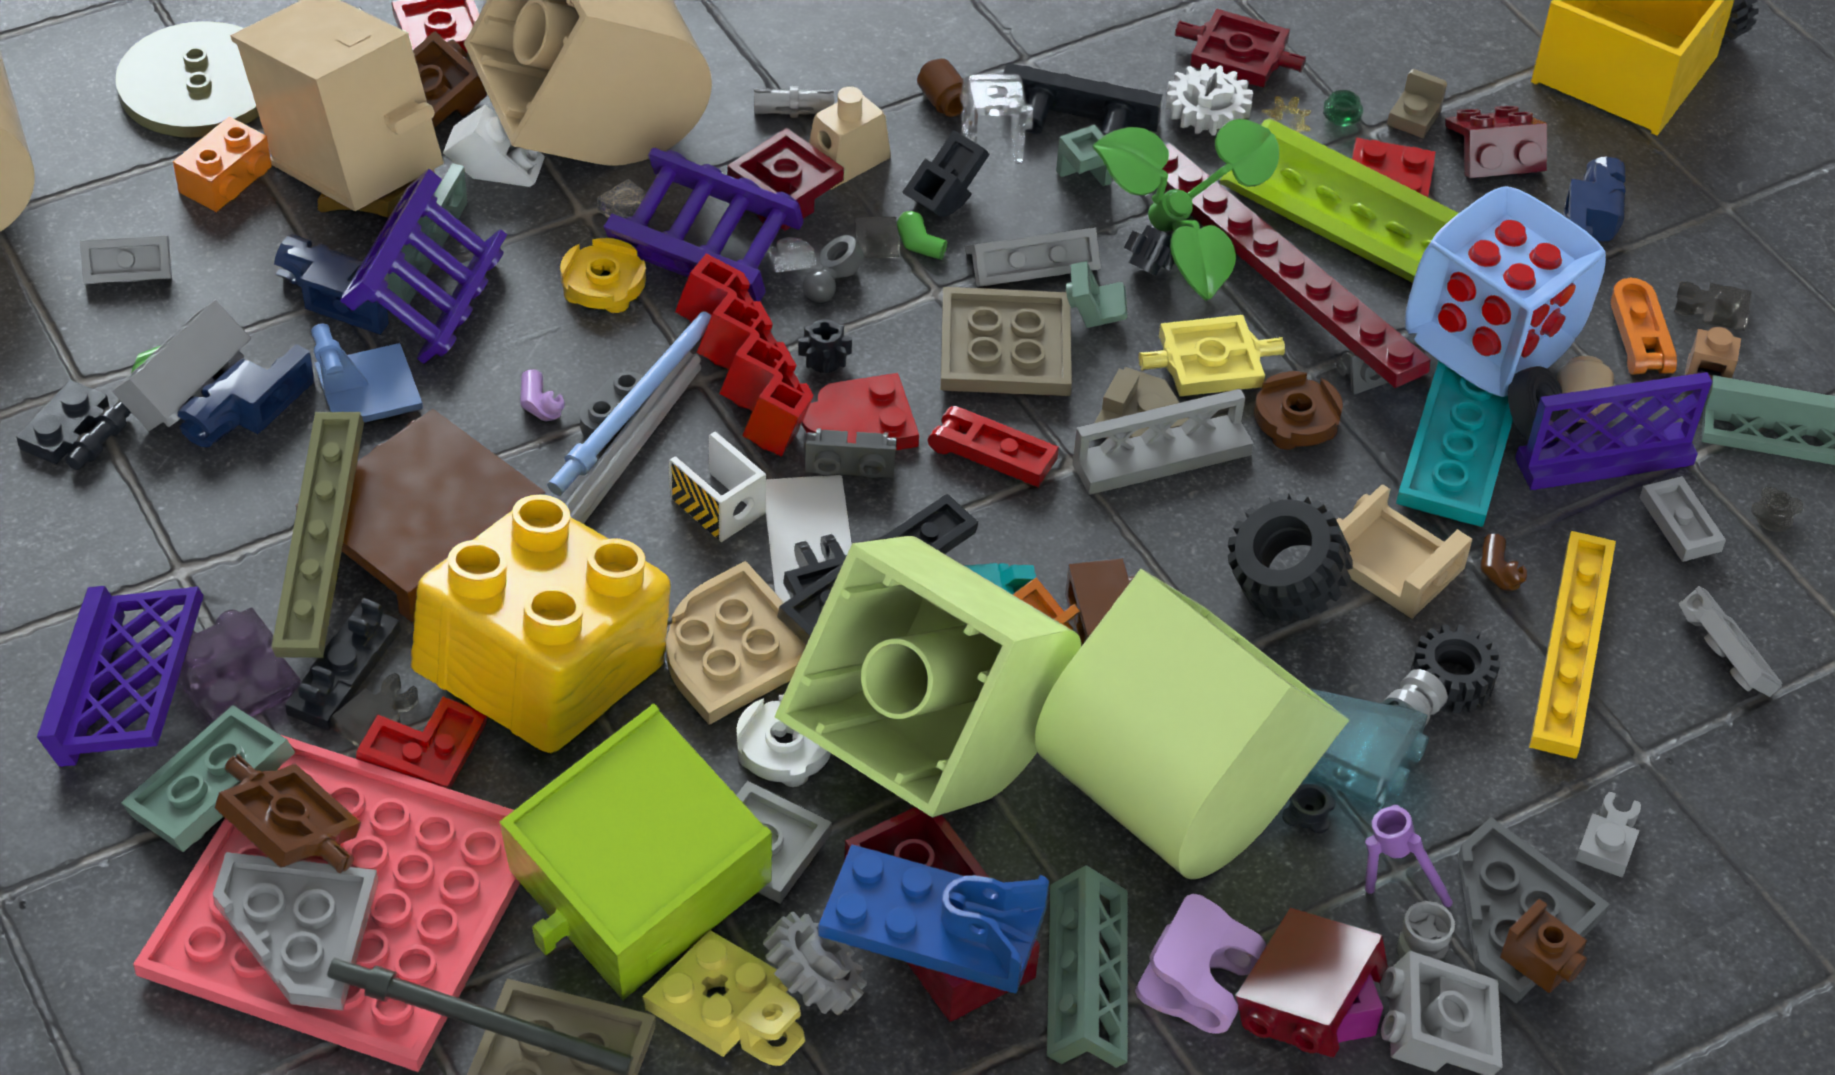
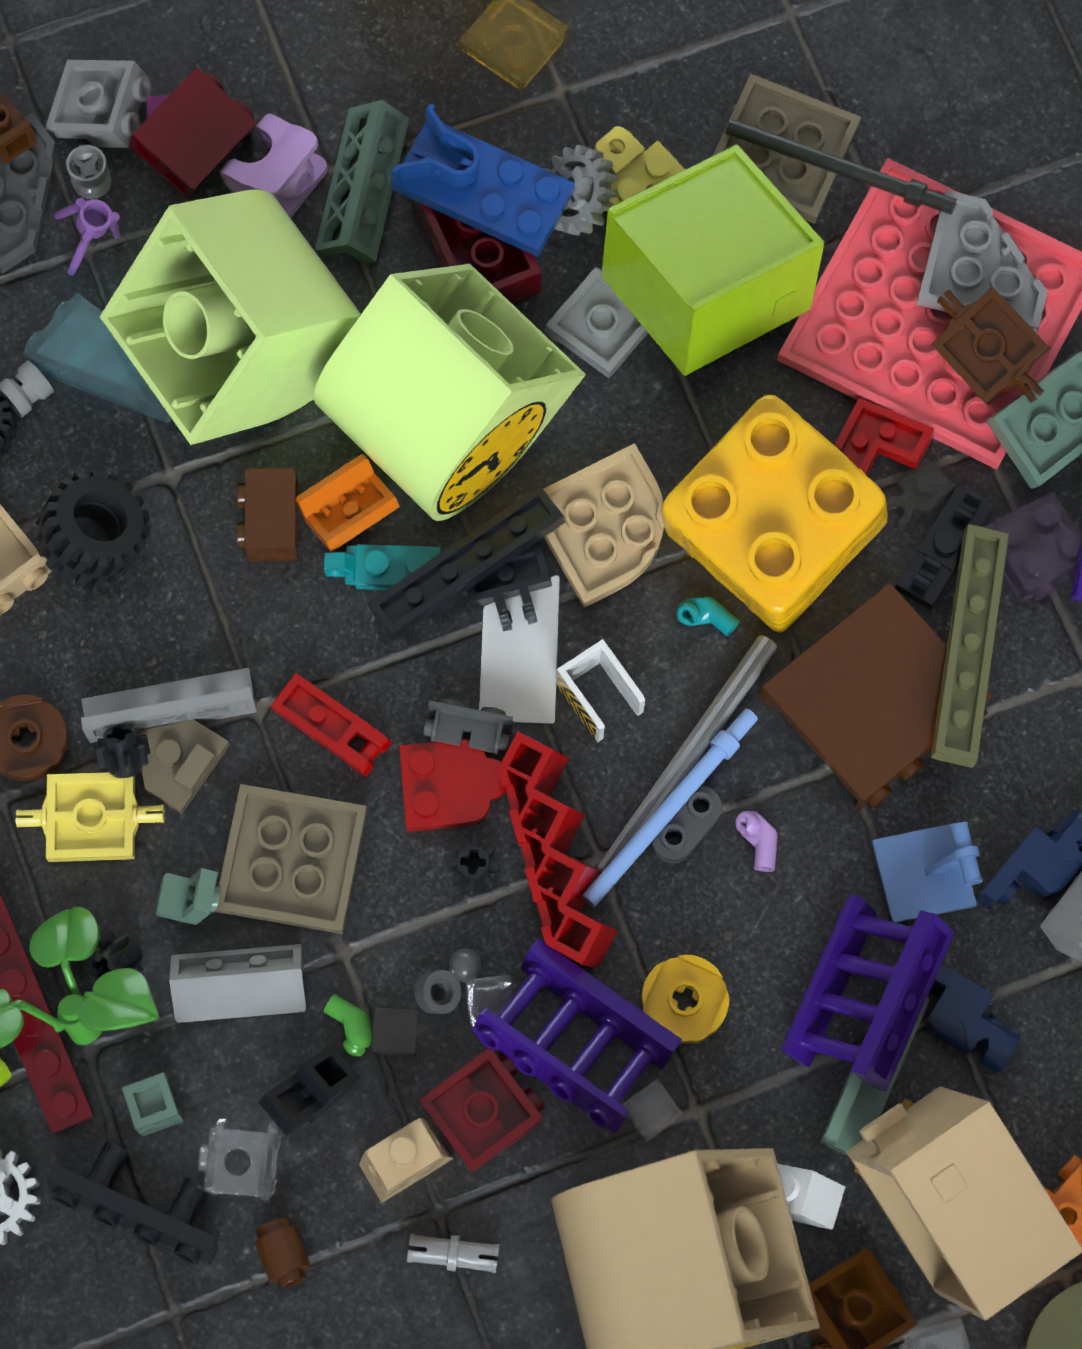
camera: 170 degrees left, 25 degrees up
(773, 760) = (587, 440): white plate -> none
(1183, 381) = (122, 751): none -> black gear

